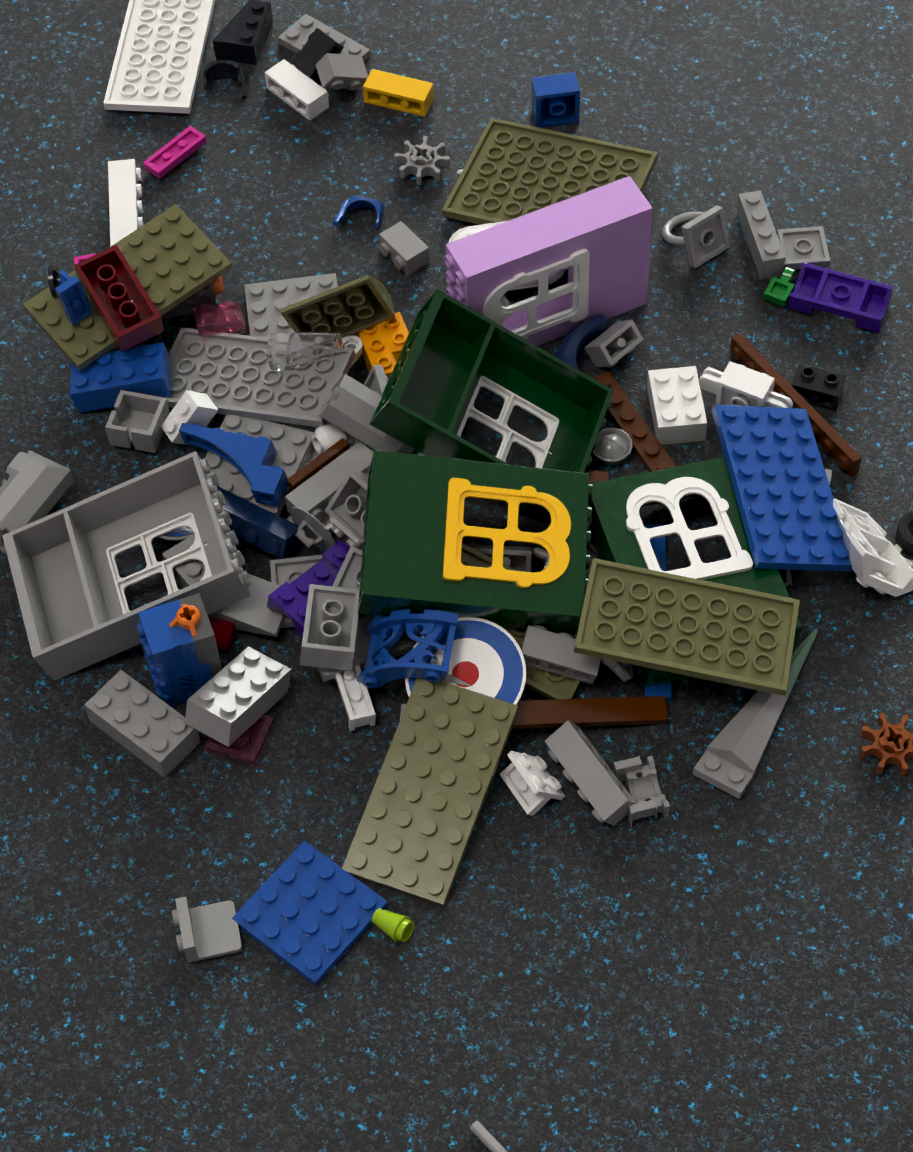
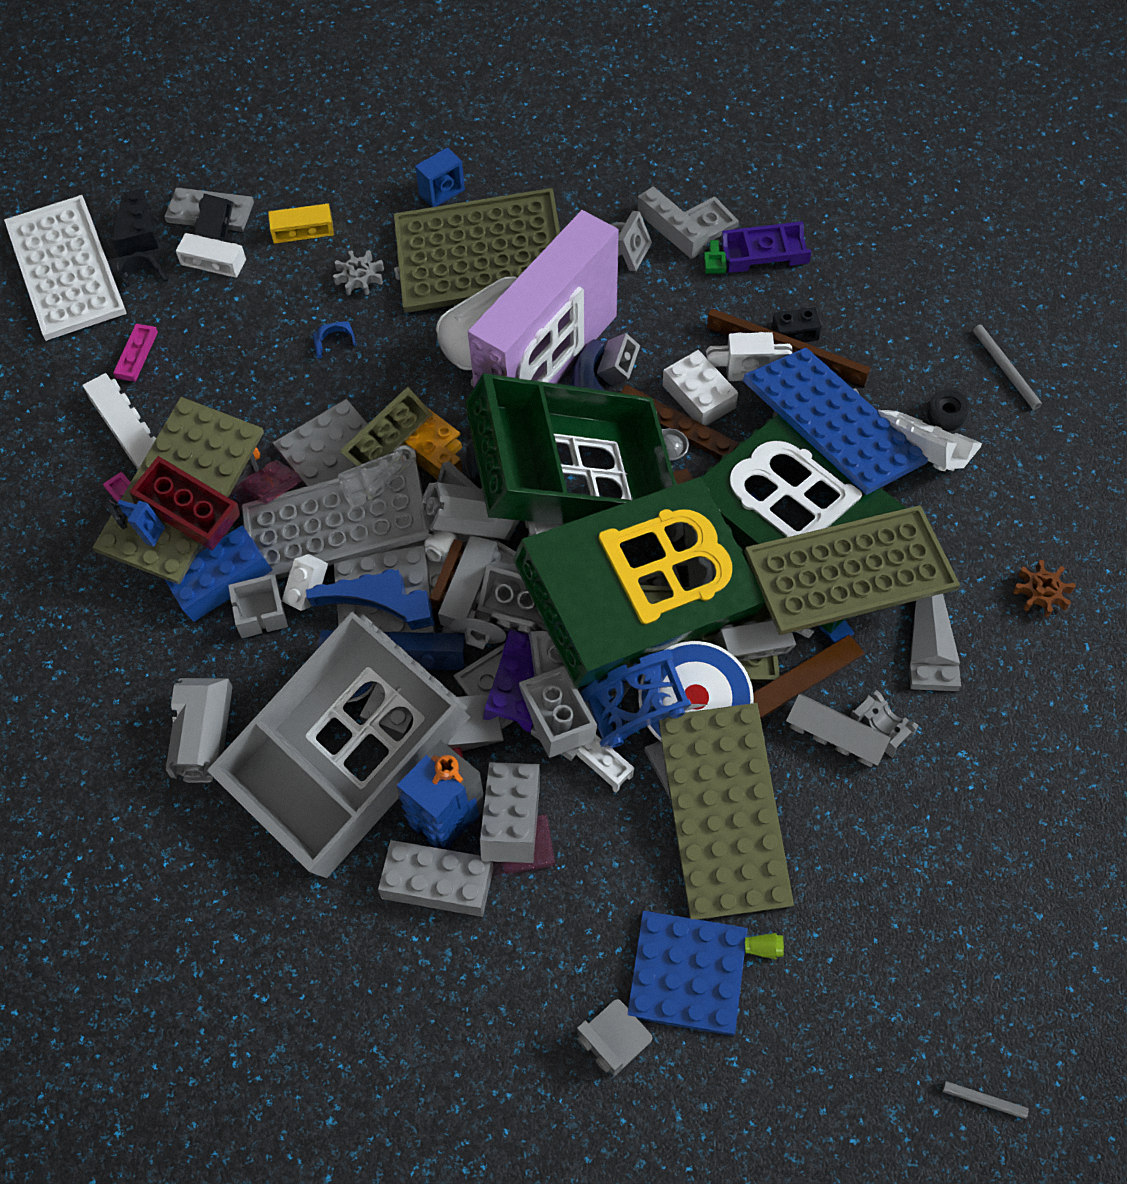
camera: 30 degrees left, 5 degrees up
(342, 71) = (244, 223): light grey brick -> none
(404, 248) = (392, 353): light grey brick -> none
(531, 782) = (795, 762): white bracket -> none

